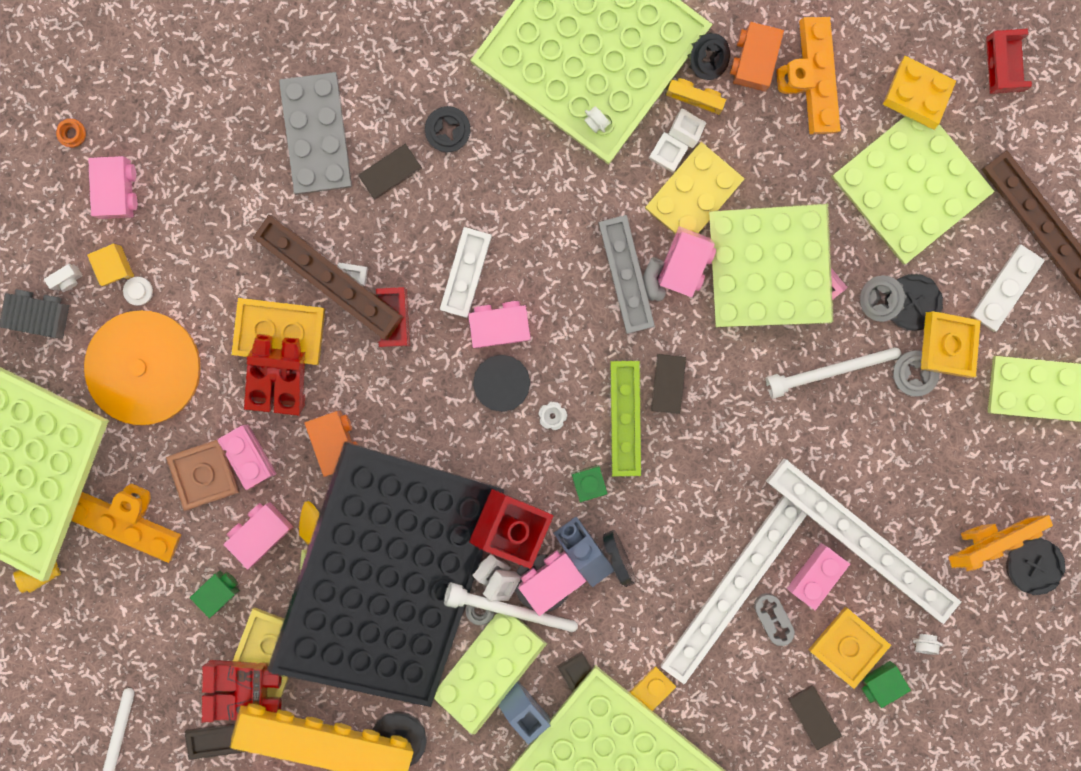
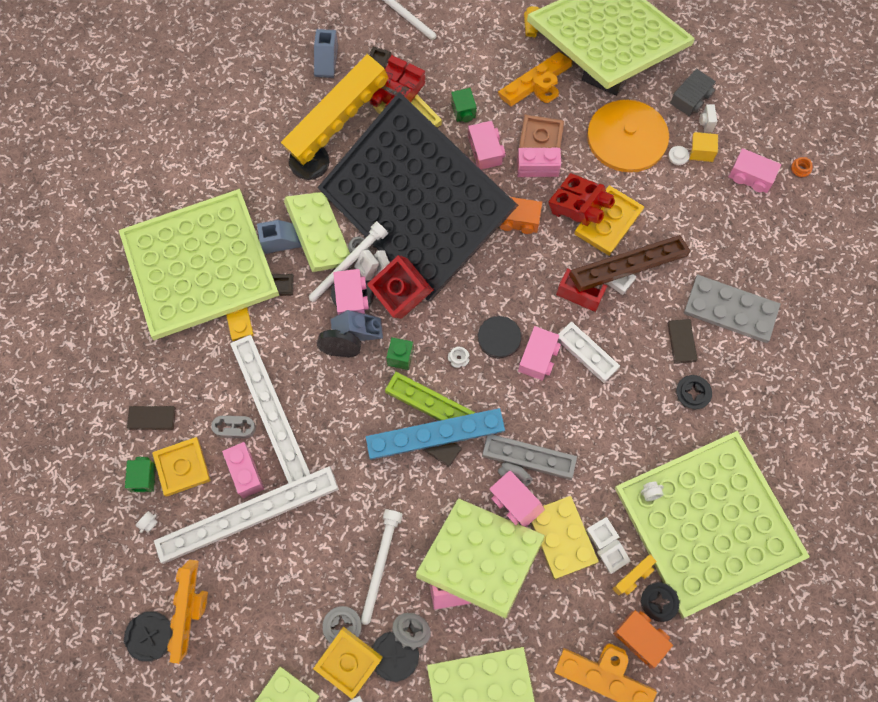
camera: 120 degrees right, 20 degrees down
(661, 390) = (435, 434): none -> dark azure plate

